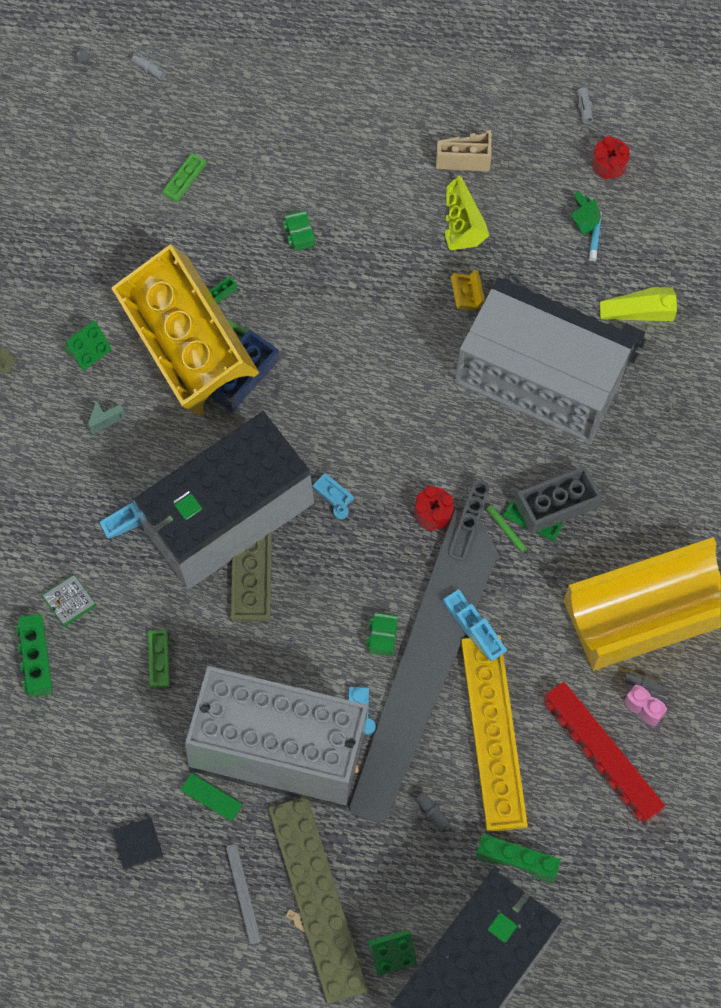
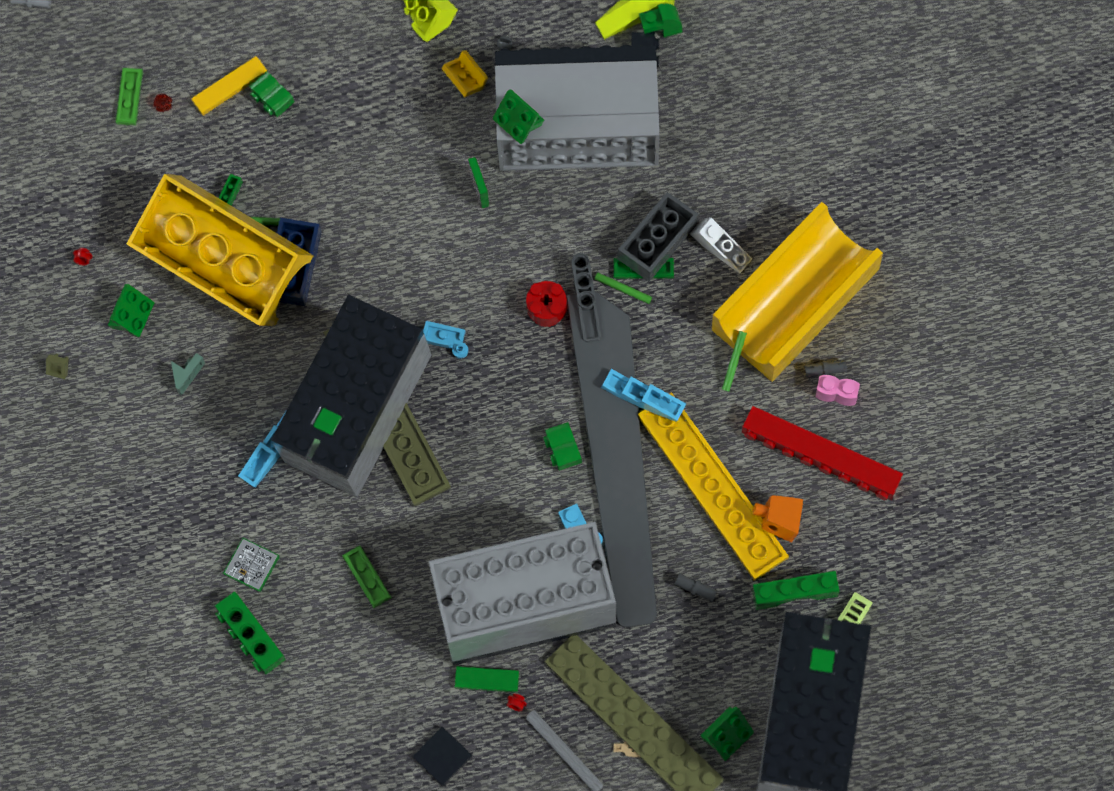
camera: 20 degrees left, 5 degrees up
(74, 284) = (82, 256): none -> red plate
(208, 191) = (162, 98): none -> clear red plate
(225, 830) = (516, 702): none -> red plate
(268, 207) = (229, 85): none -> yellow tile
(430, 381) = (478, 182): none -> green tile
(486, 337) = (517, 117): none -> green bracket
(538, 787) = (780, 516): none -> orange torso
(554, 899) = (856, 596): none -> yellowish green slope
(568, 635) = (734, 361): none -> bright green bar
(609, 533) = (720, 244): none -> white slope
(660, 324) = (664, 19): none -> green brick

